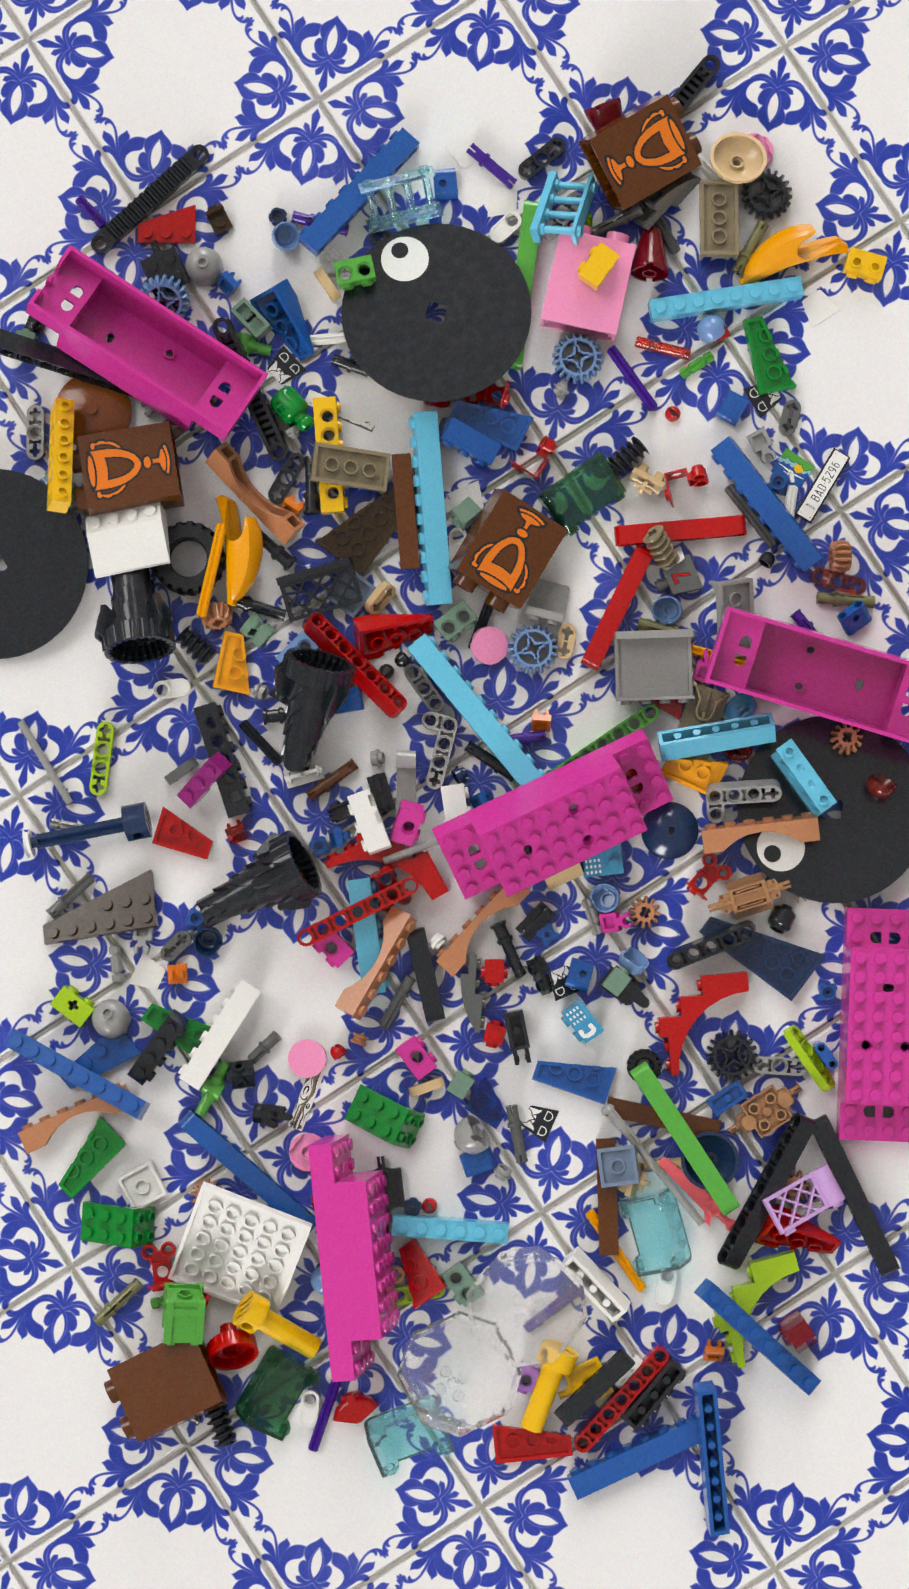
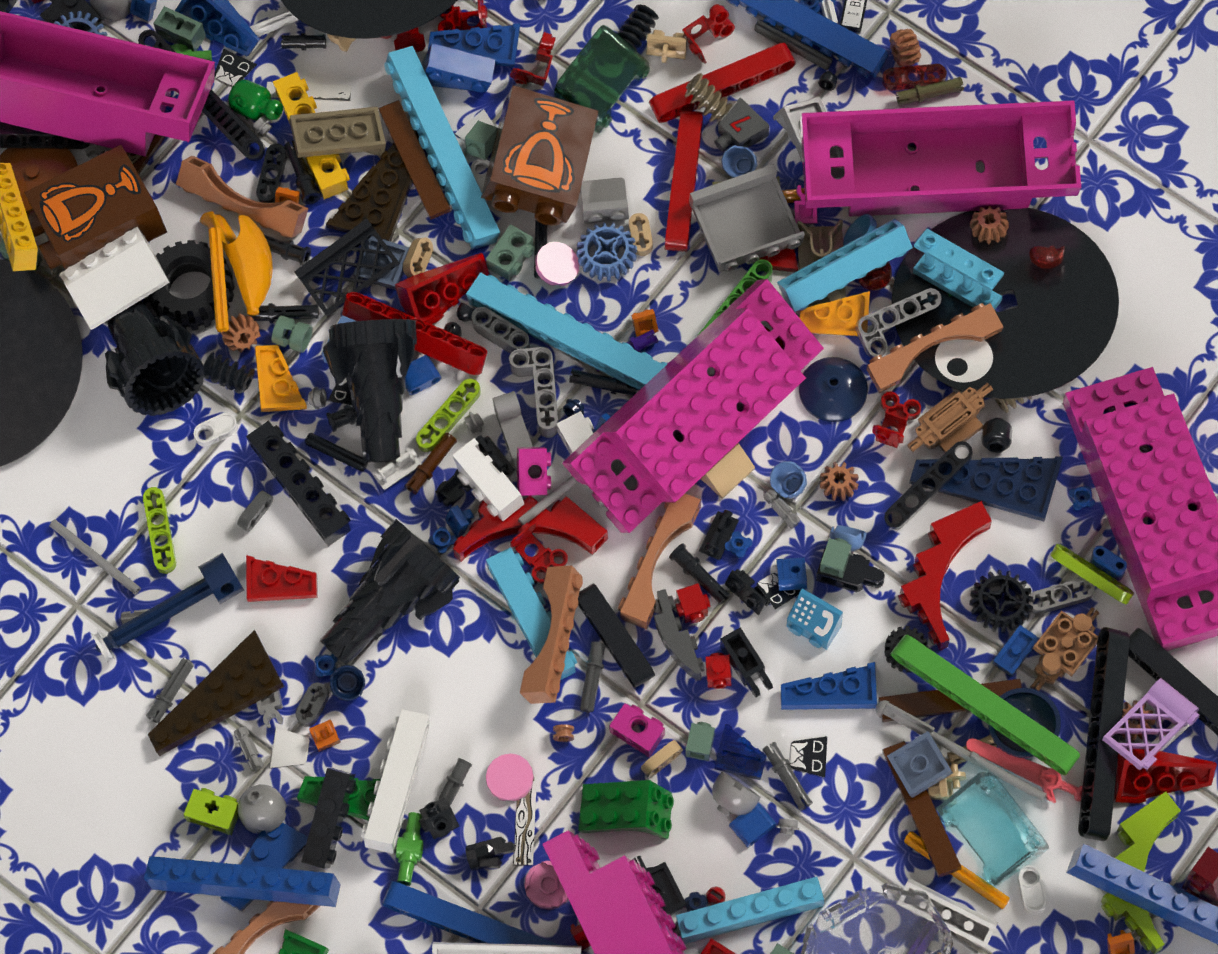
camera: 10 degrees left, 20 degrees down
(204, 778) = (278, 515): magenta arch -> none
(236, 833) = (341, 555): clear red tile -> none
(337, 1051) = (543, 757): red hinge -> none
(343, 950) = (487, 629): dark pink brick -> none
(348, 912) = (507, 594): red beam -> none
(357, 740) = (450, 416): none -> lime beam
(437, 942) = (614, 594): white plate -> none
(604, 863) = (770, 441): dark azure slope -> none
(614, 922) = (807, 502): dark pink plate -> none
(854, 617) = (947, 96): blue piece -> none

